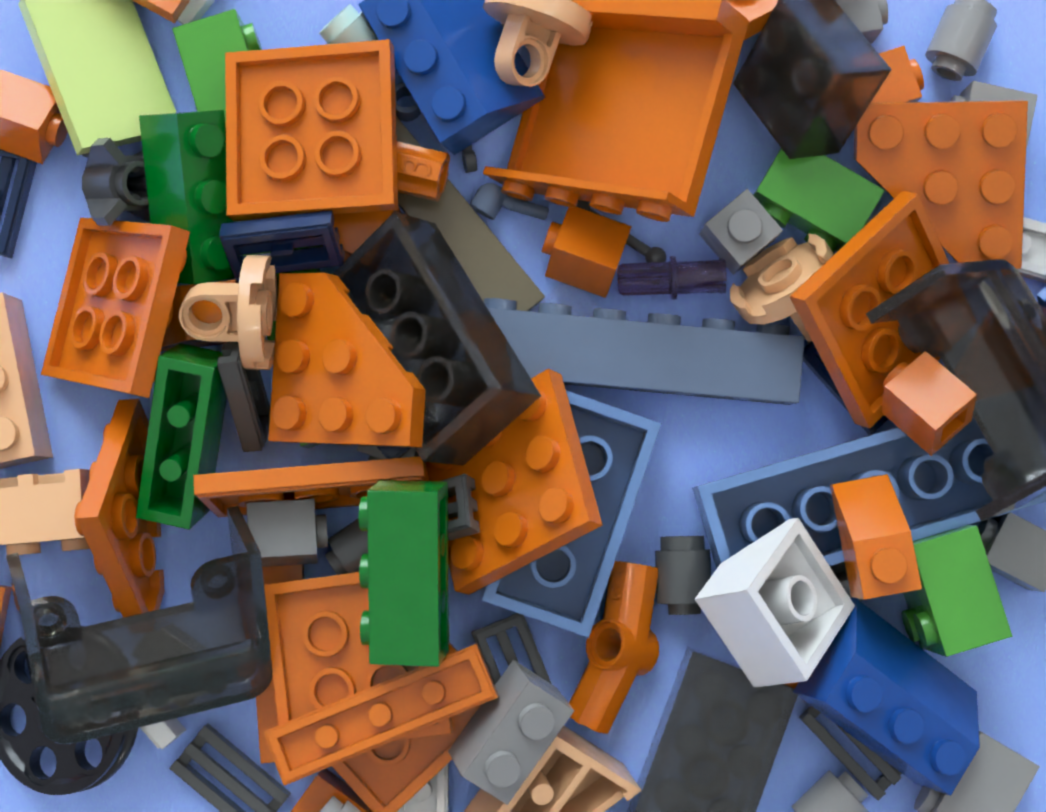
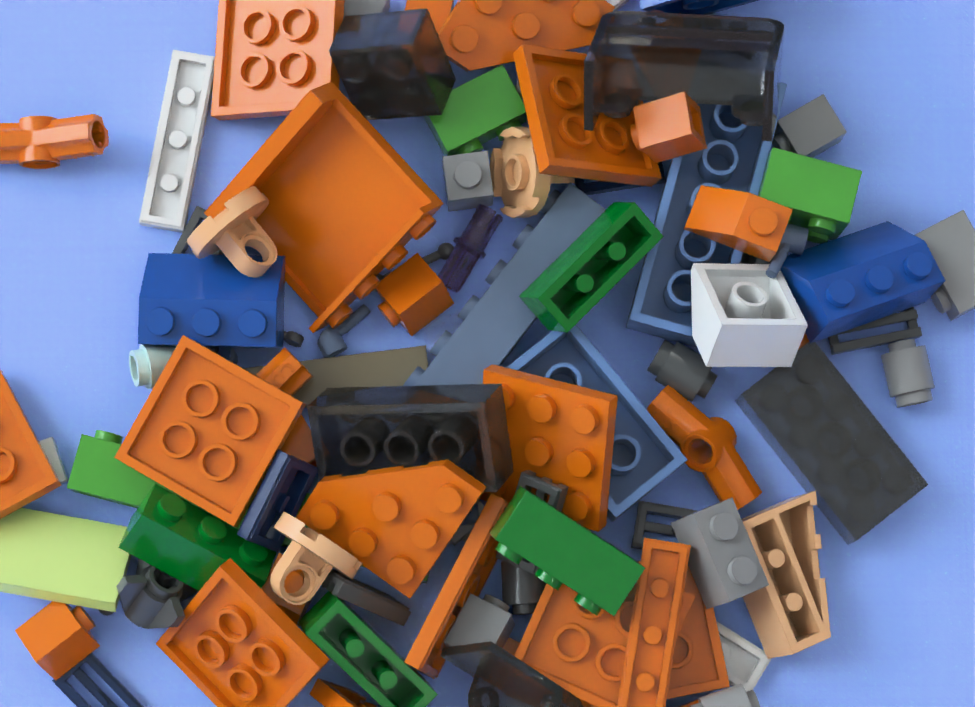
camera: 70 degrees left, 5 degrees down
(727, 413) = (591, 266): none -> green brick
(889, 608) = (793, 241): none -> sand blue hand

